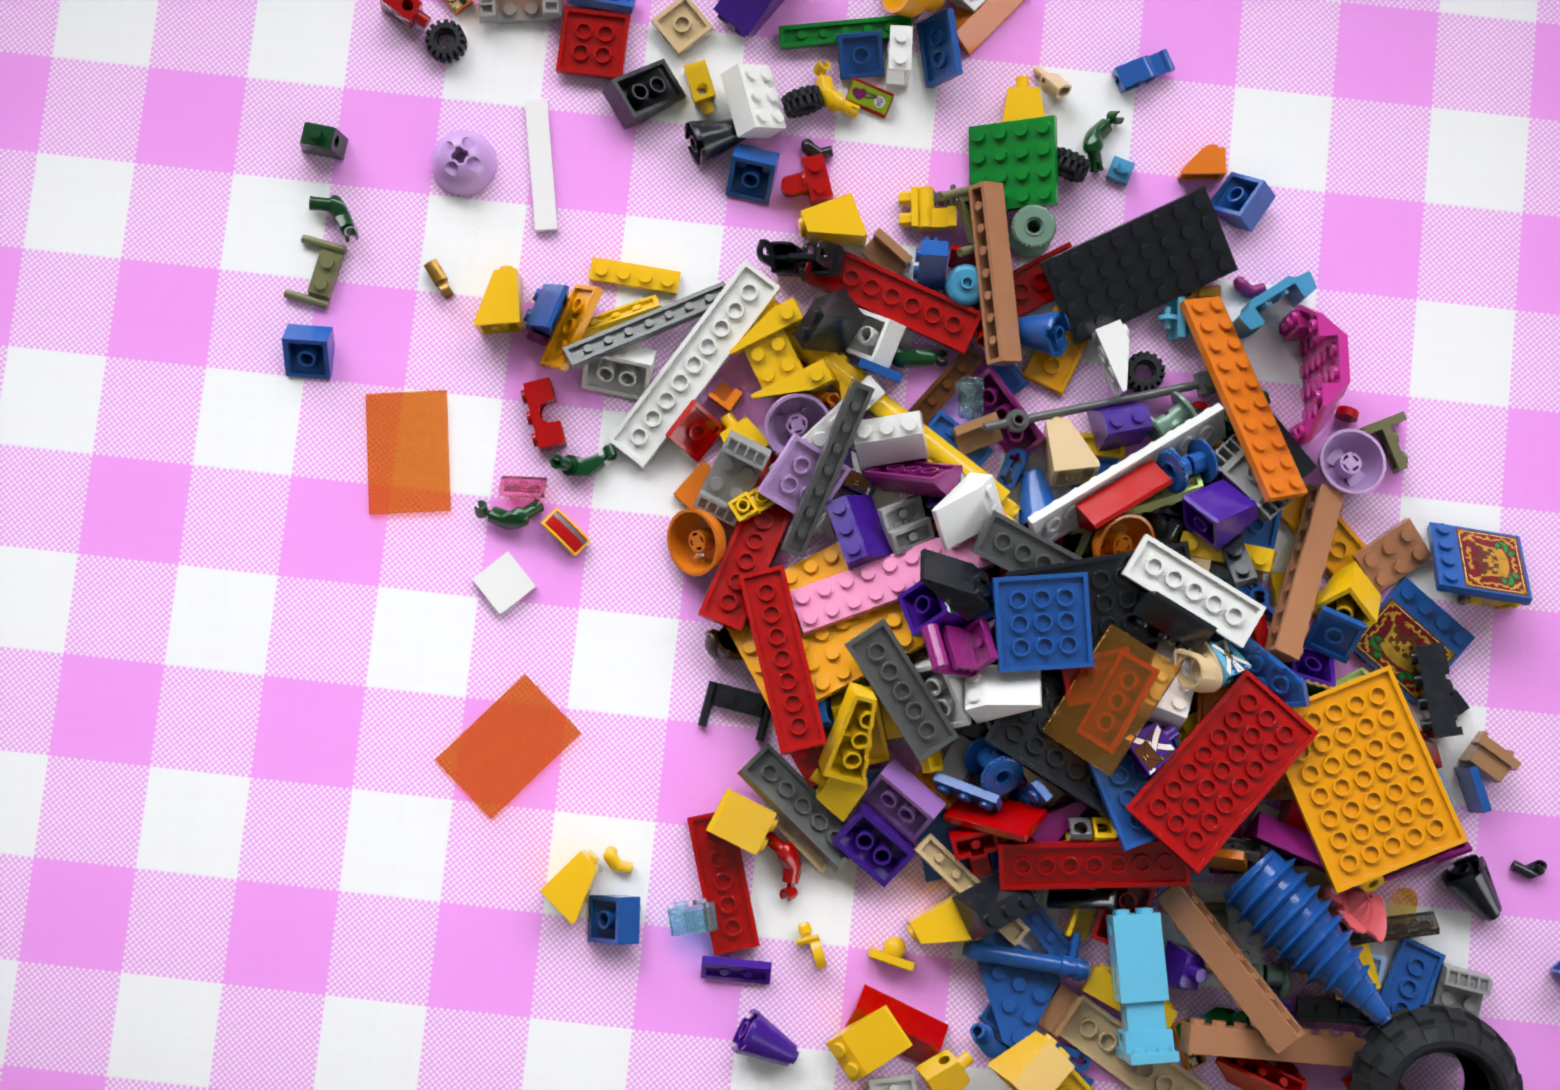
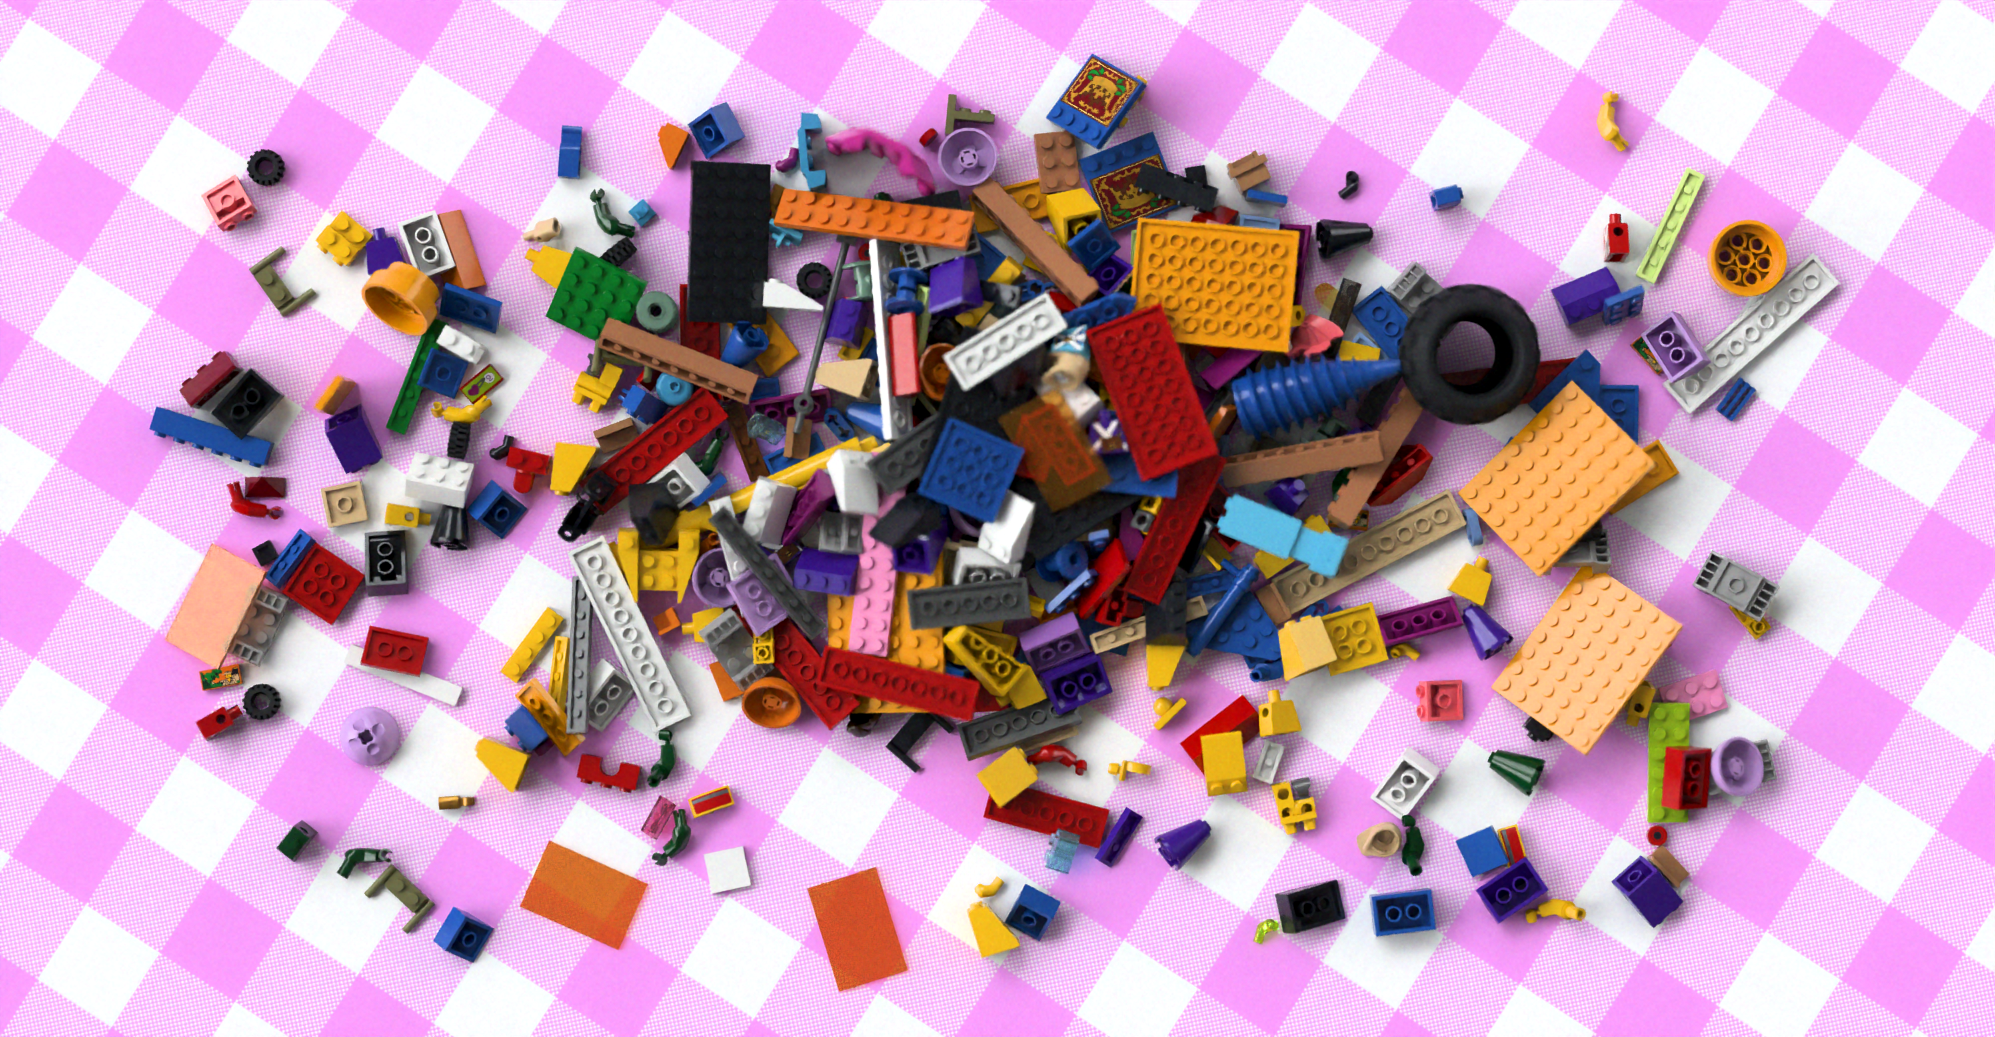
camera: 65 degrees left, 5 degrees up
(560, 143) = (394, 651): none -> red plate
(695, 431) = (682, 659): red plate -> none
(960, 650) = (959, 544): magenta piece -> none

